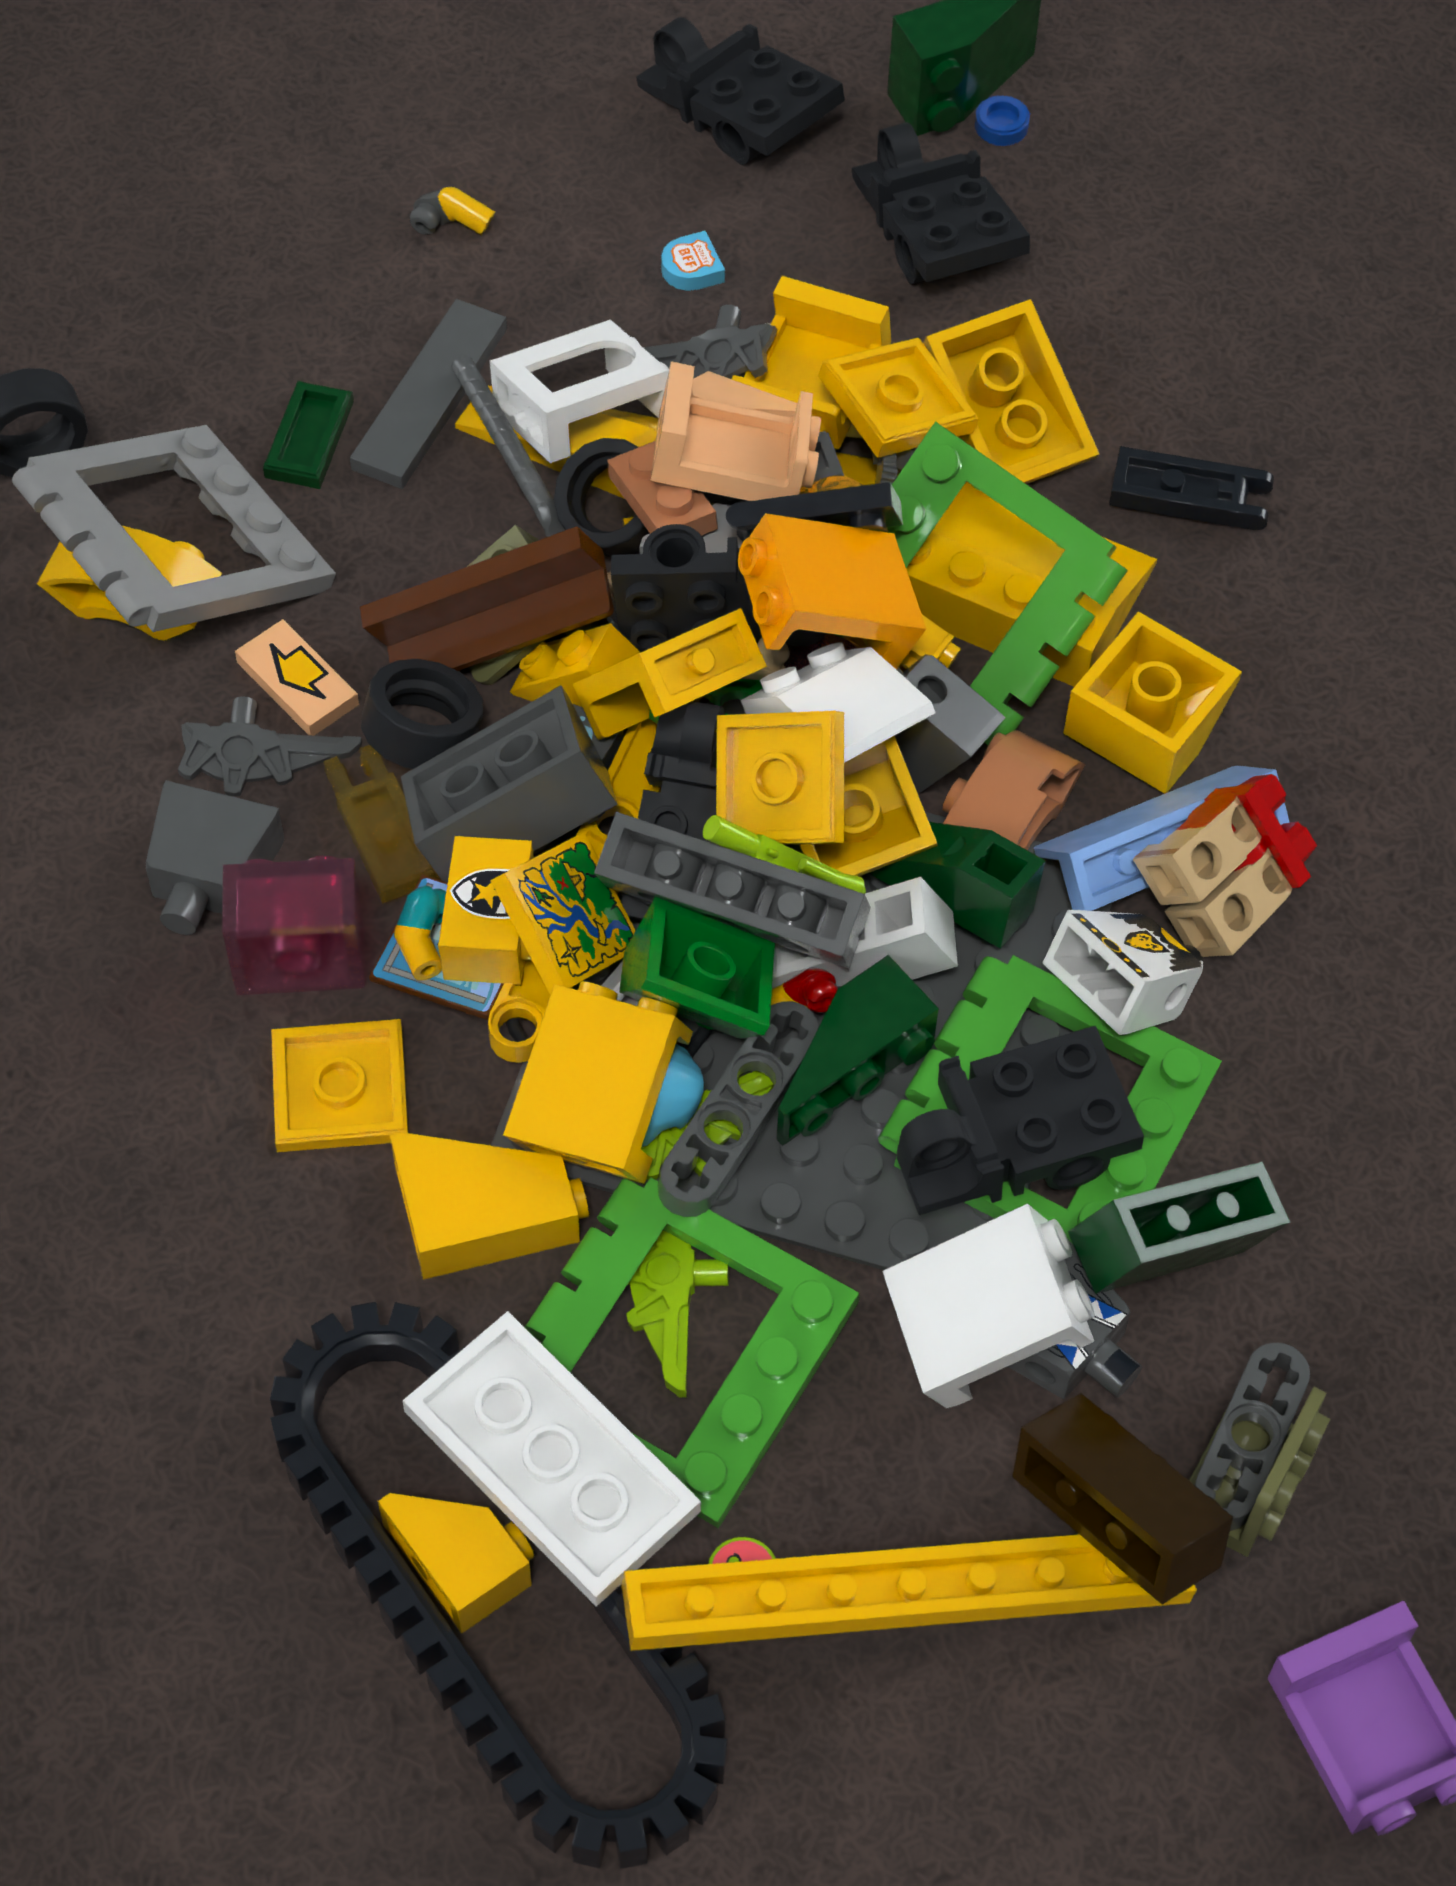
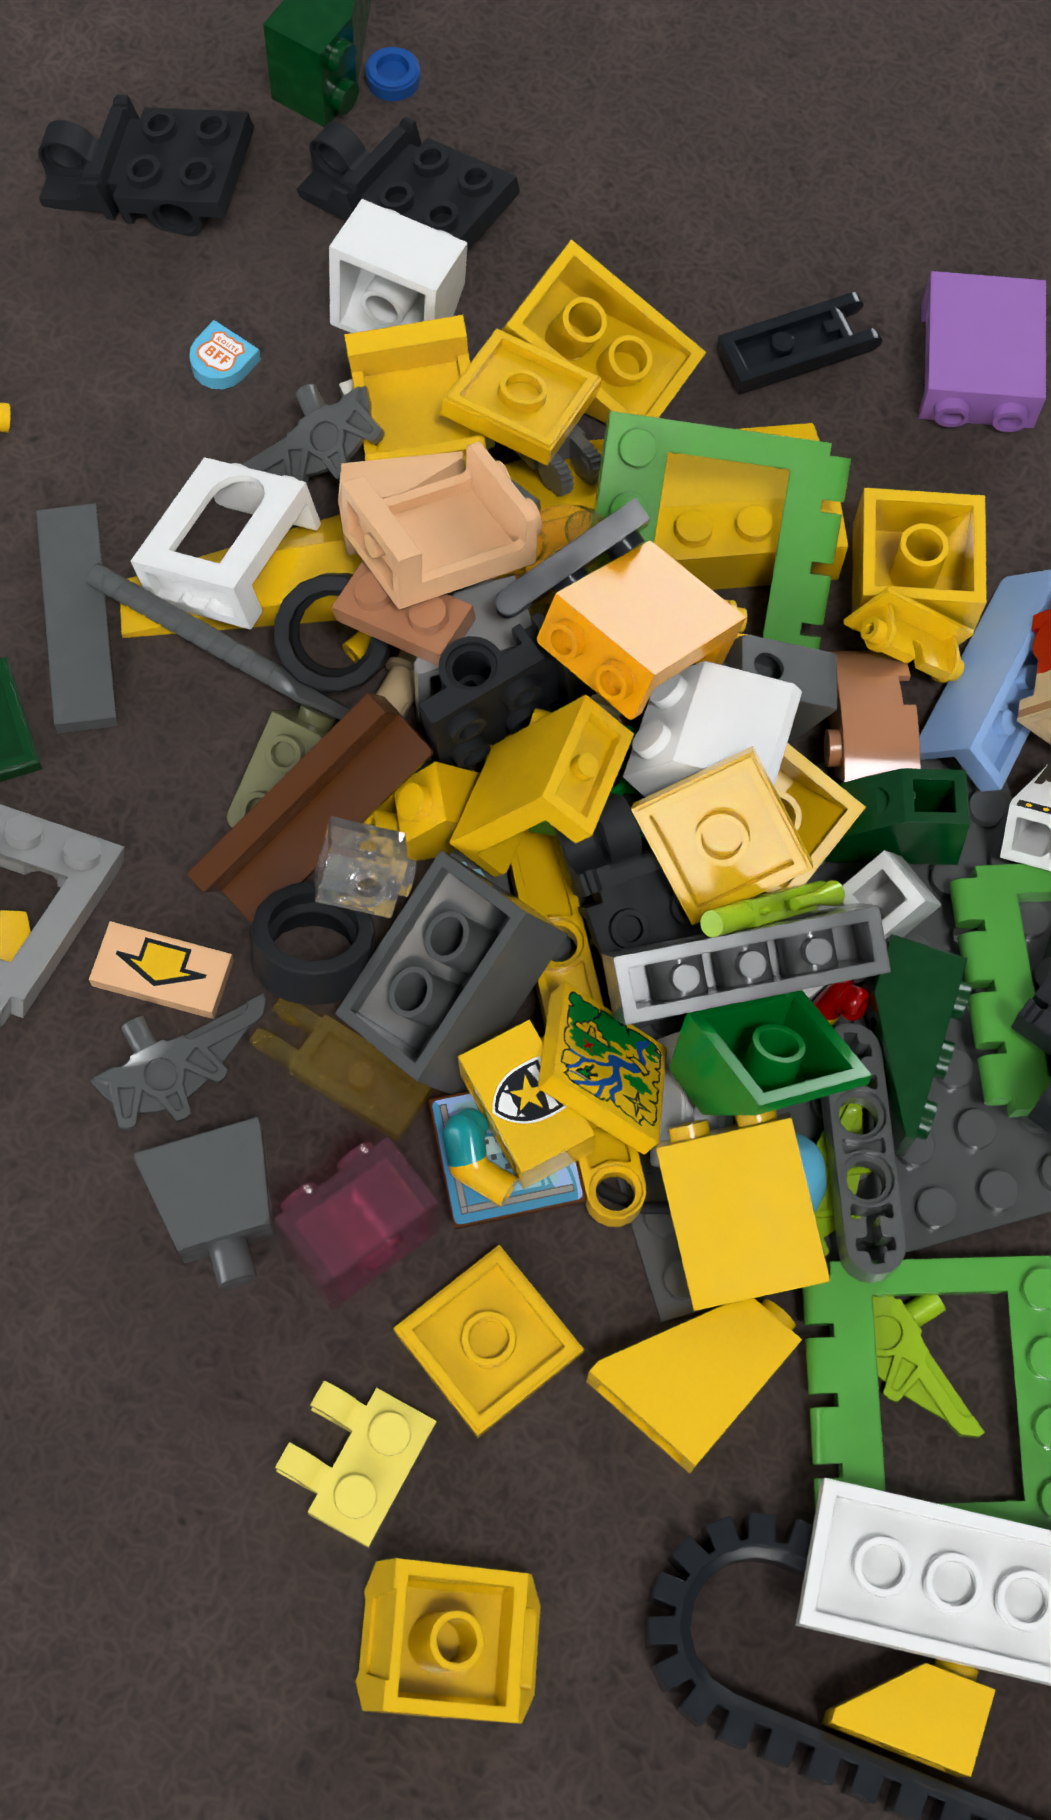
camera: 35 degrees left, 10 degrees up
(141, 1271) = (448, 1641): none -> yellow slope
(178, 1117) = (369, 1468): none -> light yellow plate
(496, 672) = (363, 867): none -> clear brick
(869, 252) = (392, 271): none -> white slope
(1089, 735) = (910, 632): none -> yellow hinge
(1348, 572) = (984, 350): none -> medium lavender panel

